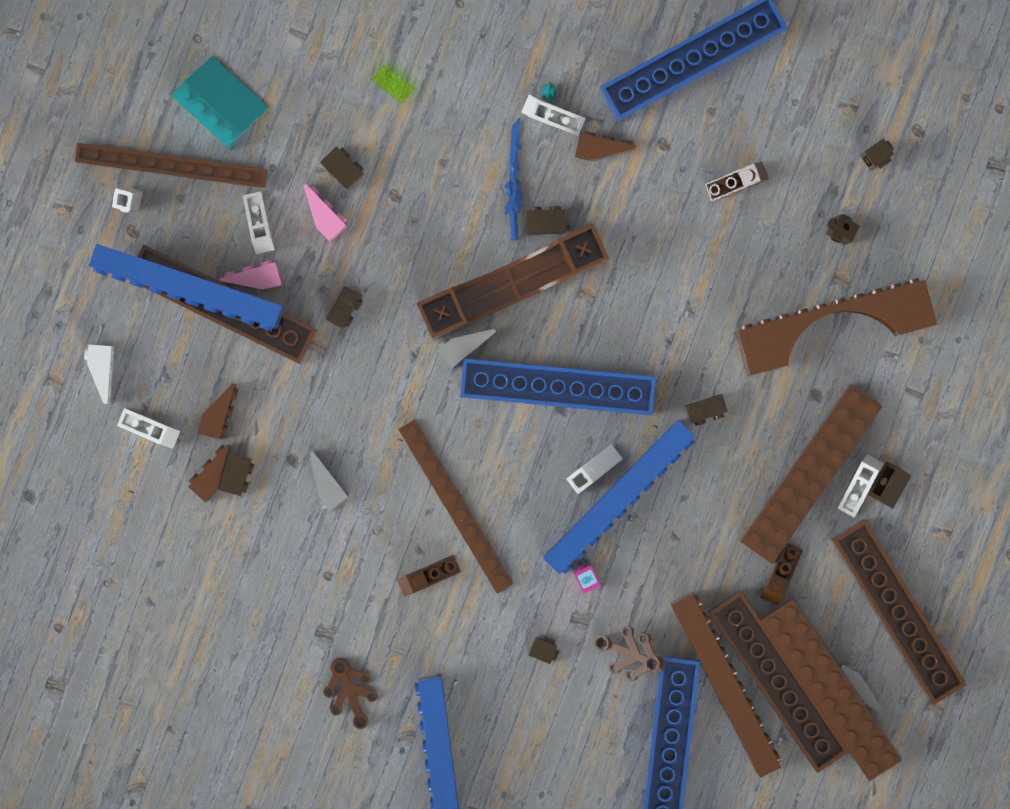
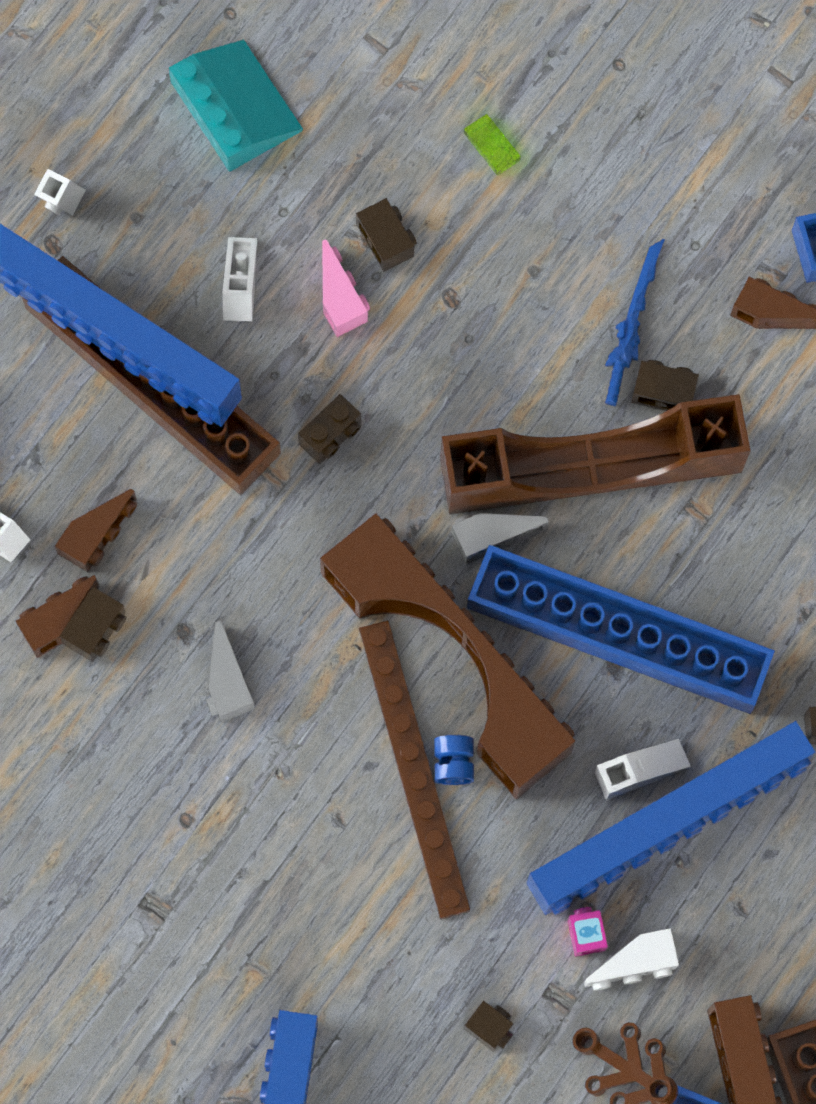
camera: 15 degrees right, 15 degrees down
(171, 165) = (138, 167): reddish brown plate -> none
(261, 278) = (226, 350): bright pink slope -> none
(349, 690) = (165, 1003): reddish brown plant -> none
(402, 394) = (382, 576): none -> reddish brown arch
(428, 575) = (341, 860): reddish brown slope -> none
(479, 496) = (454, 758): none -> blue wheel
(548, 91) = (717, 212): teal plate -> none
(553, 115) = (714, 244): white slope -> none
(624, 582) = (643, 956): none -> white slope

